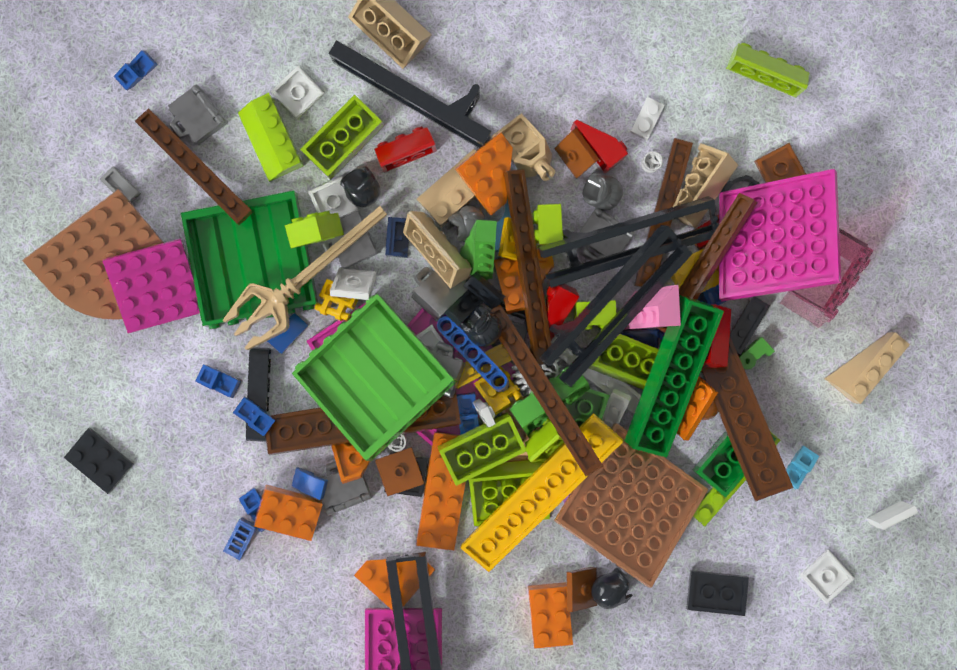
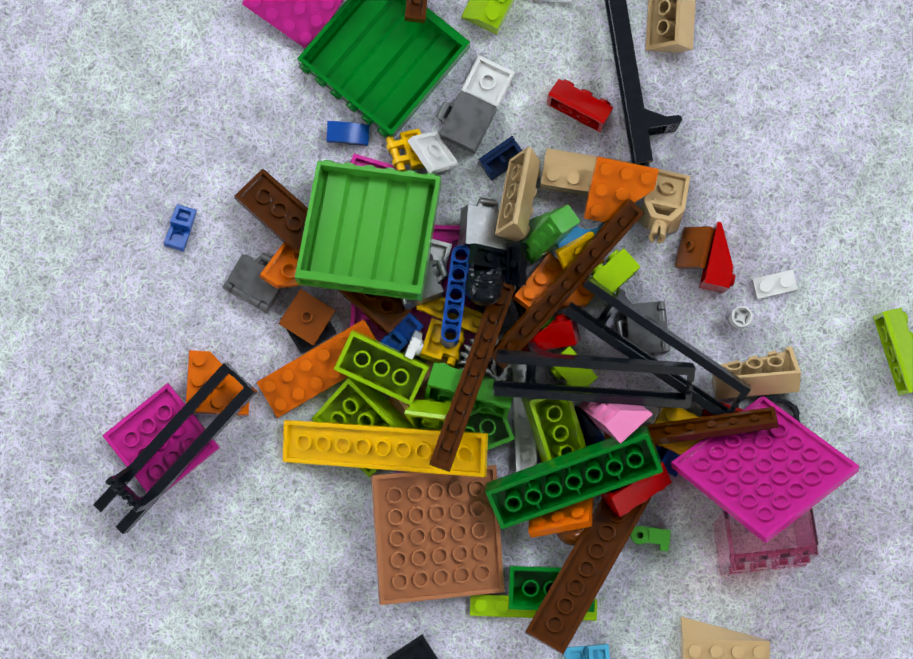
camera: 55 degrees right, 5 degrees down
(98, 460) = (116, 65): black plate -> none
(218, 381) = (261, 108): blue slope -> none
(247, 525) = (159, 222): slope -> none
(254, 416) = (256, 159): blue slope -> none
(258, 385) = (277, 148): black beam -> none
(275, 301) = (366, 100): tan piece -> none
(288, 512) = (198, 252): orange brick -> none
(309, 483) = (237, 251): blue slope -> none
(314, 228) = (451, 82): lime brick -> none
(342, 137) = (547, 46): lime brick -> none
(361, 187) = (518, 94): black hair -> none
(399, 443) = (332, 298): white wheel -> none
(464, 221) = (559, 198): dark grey hair -> none
(549, 615) = (287, 543): orange brick -> none
(579, 588) = (331, 551): dark orange plate -> none
(602, 191) = (681, 296): dark grey hair -> none
(611, 589) = (350, 575): black hair -> none
(615, 407) = (508, 454): white plate -> none
(666, 198) = (724, 353): reddish brown plate -> none
(748, 323) = (672, 510): black plate -> none
(780, 164) = (830, 426): dark orange plate -> none

